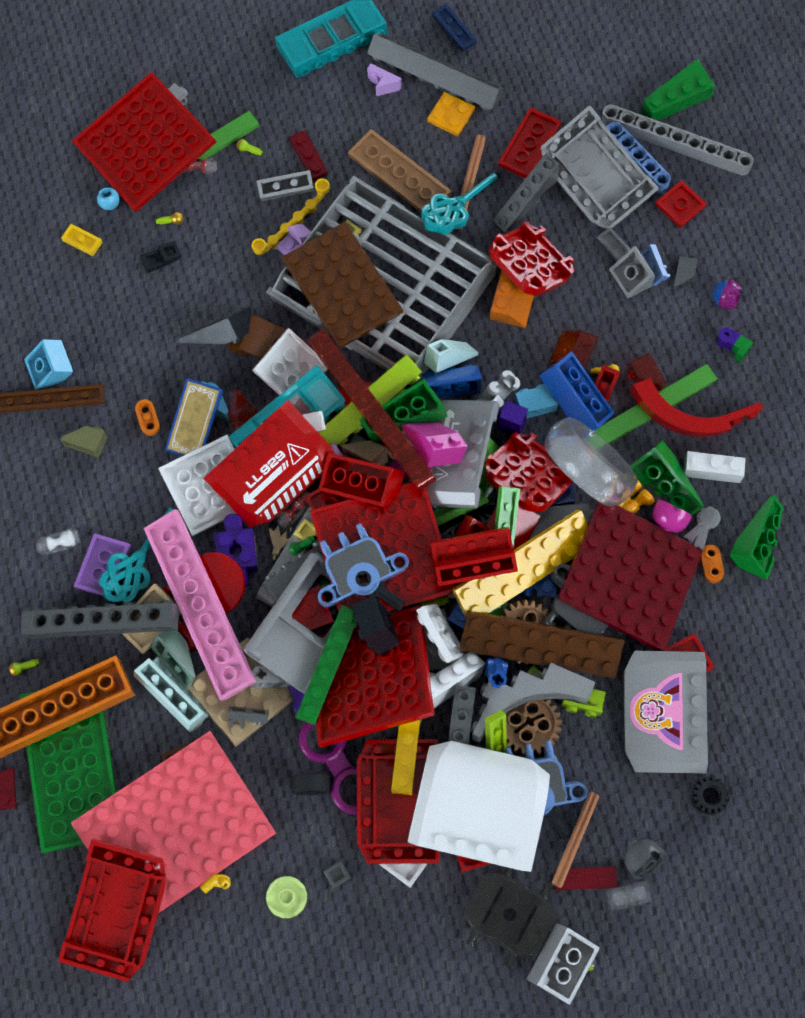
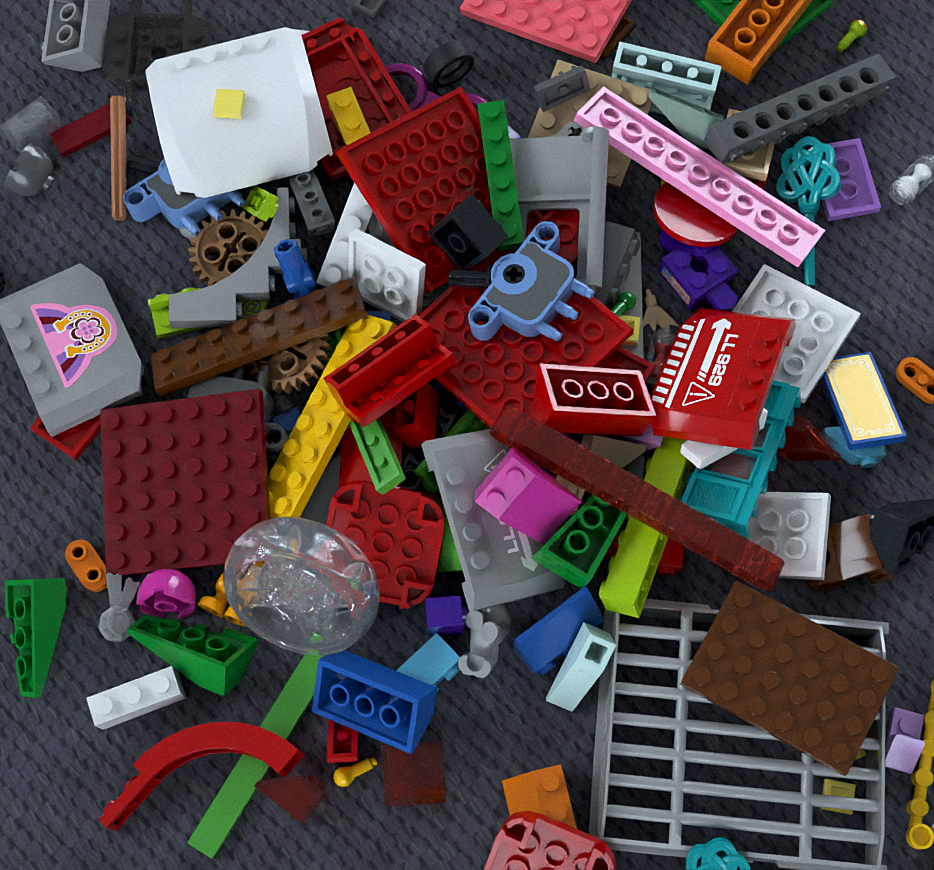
camera: 150 degrees right, 0 degrees up
(487, 793) = (229, 103): none -> light yellow tile

